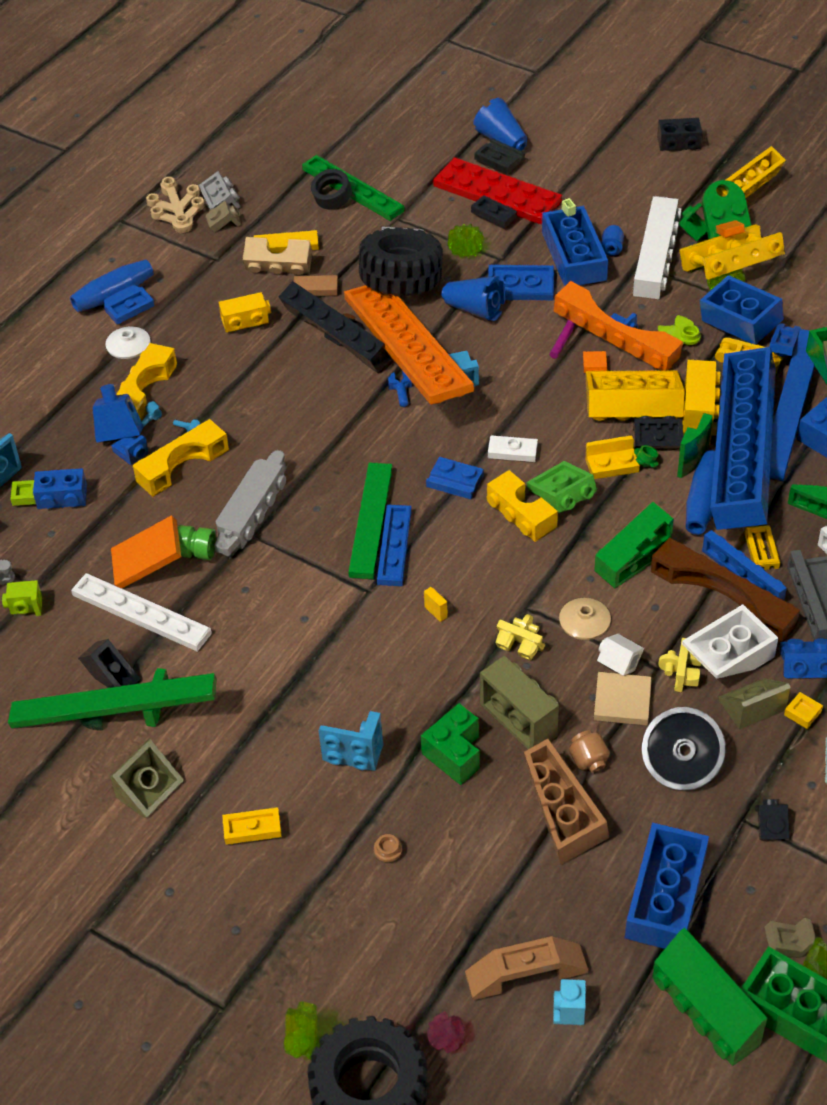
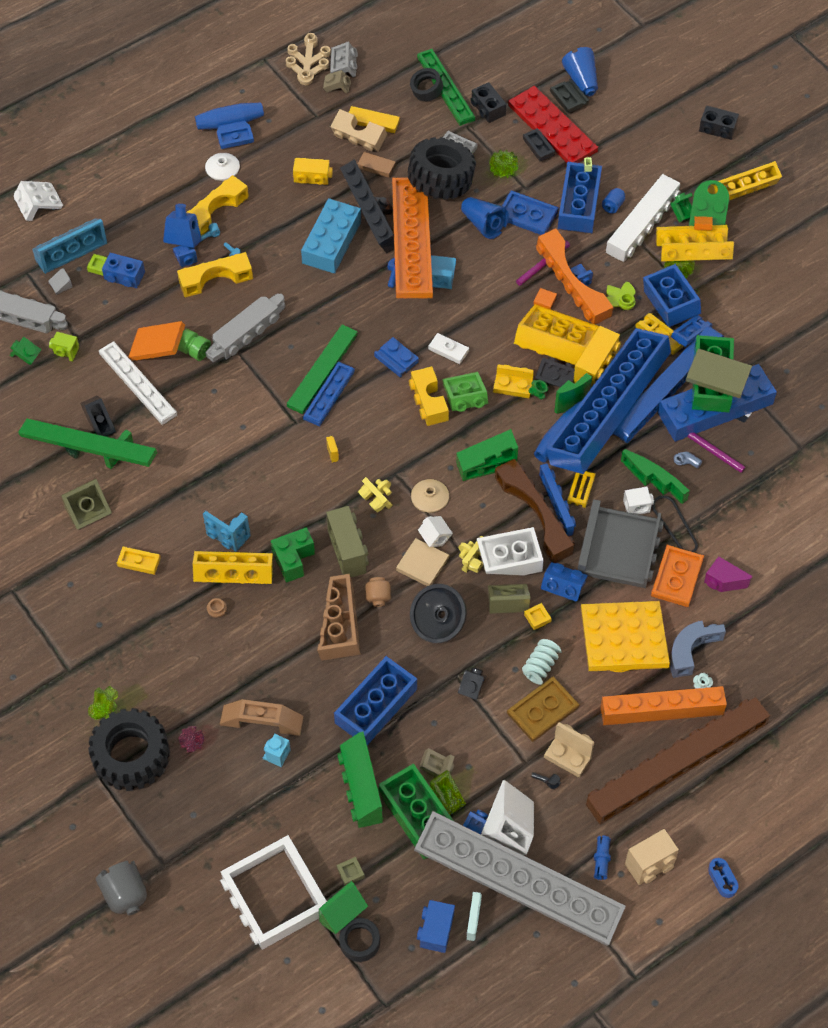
camera: 20 degrees right, 10 degrees up
(304, 372) = (331, 236): none -> dark azure brick
(386, 788) = (233, 567): none -> yellow brick
(412, 187) = (488, 102): none -> black brick

